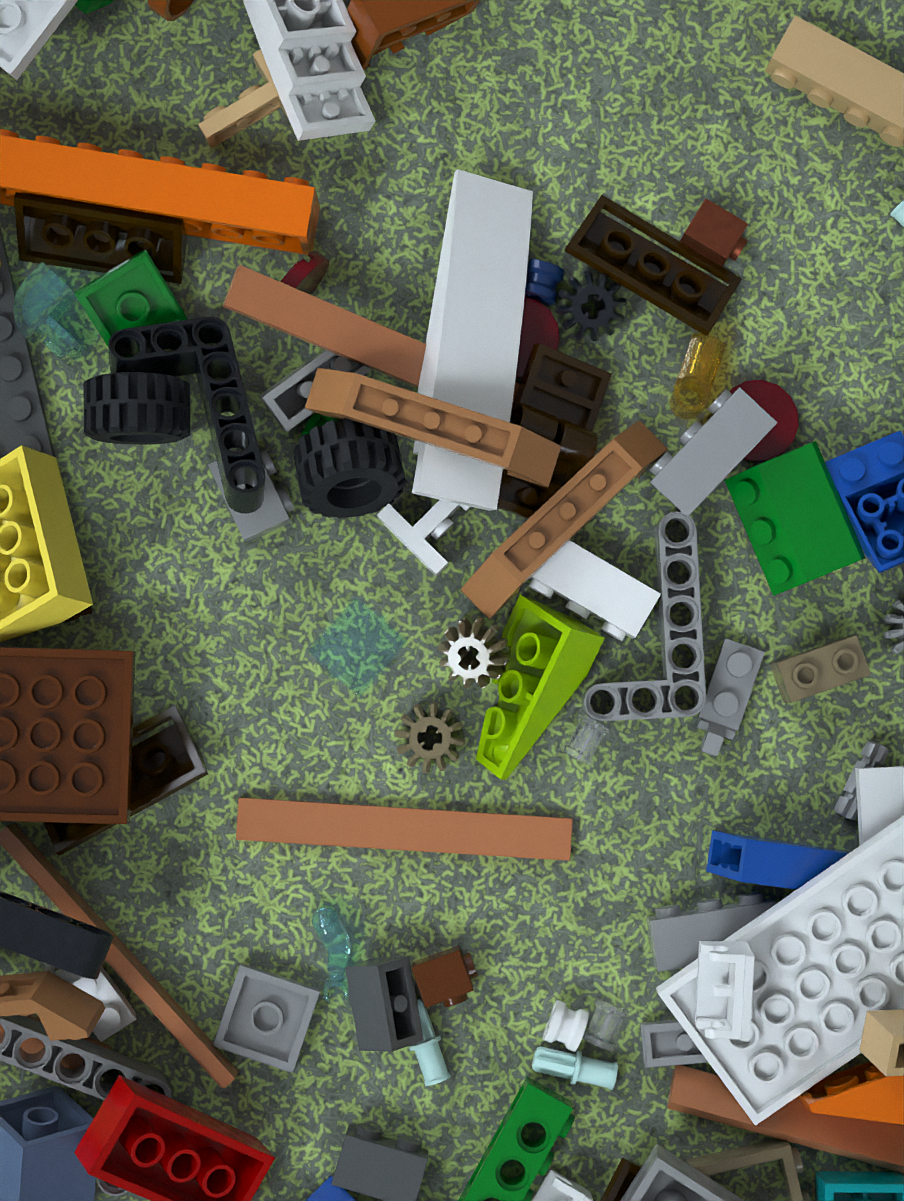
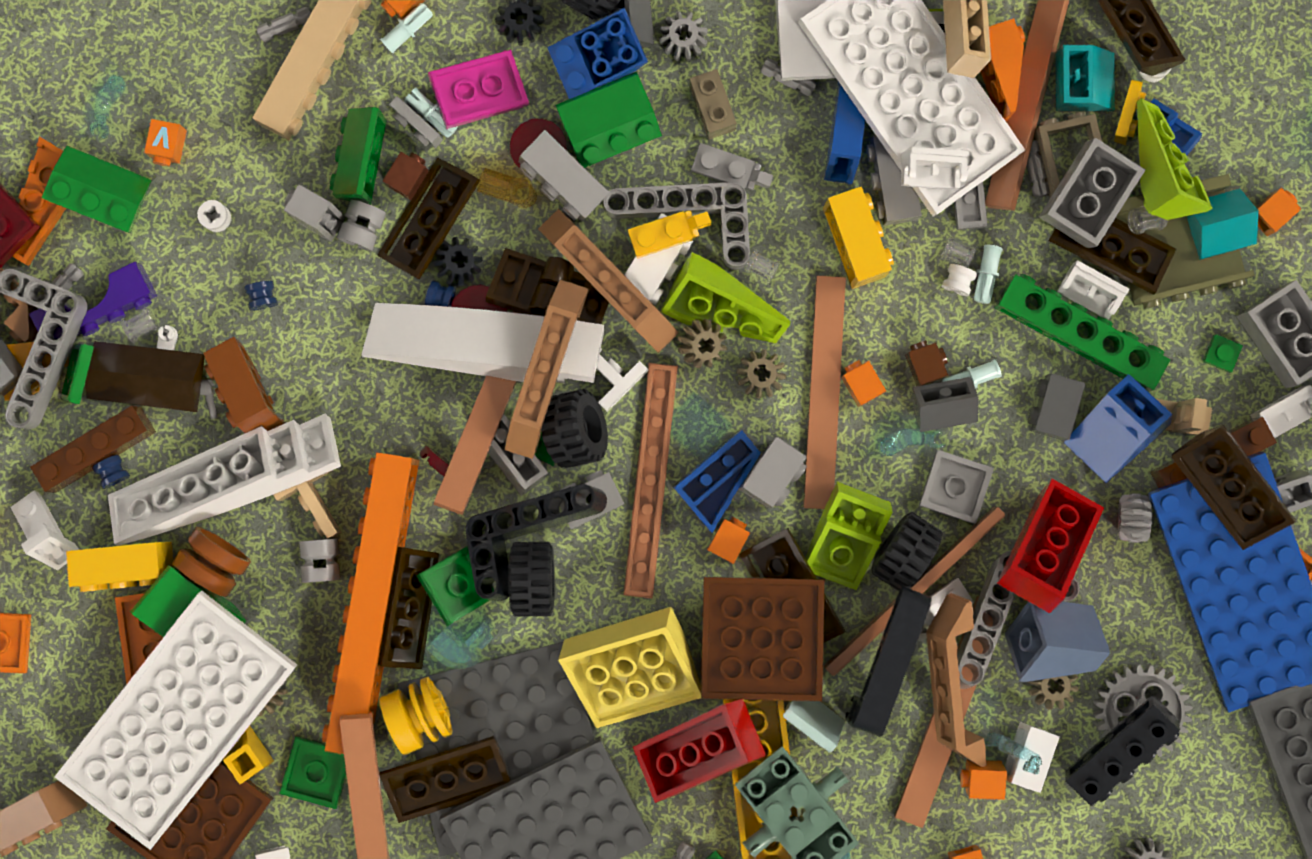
camera: 85 degrees left, 0 degrees up
(169, 945) = (907, 552): none -> black tyre
(183, 115) = (319, 549): none -> light grey wheel
(193, 690) = (729, 539): none -> orange brick
(198, 860) = (848, 535): none -> lime slope
(278, 672) = (717, 479): none -> blue wedge
(279, 751) = (773, 473): none -> light grey brick
(280, 579) = (650, 480): none -> nougat tile
(416, 883) = (862, 382): none -> orange brick
(543, 32) = (260, 295): none -> dark blue wheel
(626, 878) = (858, 237): none -> yellow brick
(629, 164) = (356, 234): none -> light grey wheel
(631, 601) = (667, 232): none -> yellow hinge
(657, 99) = (314, 212): none -> light grey brick
(724, 1142) = (1037, 172): none -> light grey axle
(742, 167) = (358, 154): none -> green slope
(799, 233) = (405, 115): none -> light grey plate
(804, 269) = (428, 111): none -> light aqua axle
(839, 335) = (478, 89): none -> dark pink tile

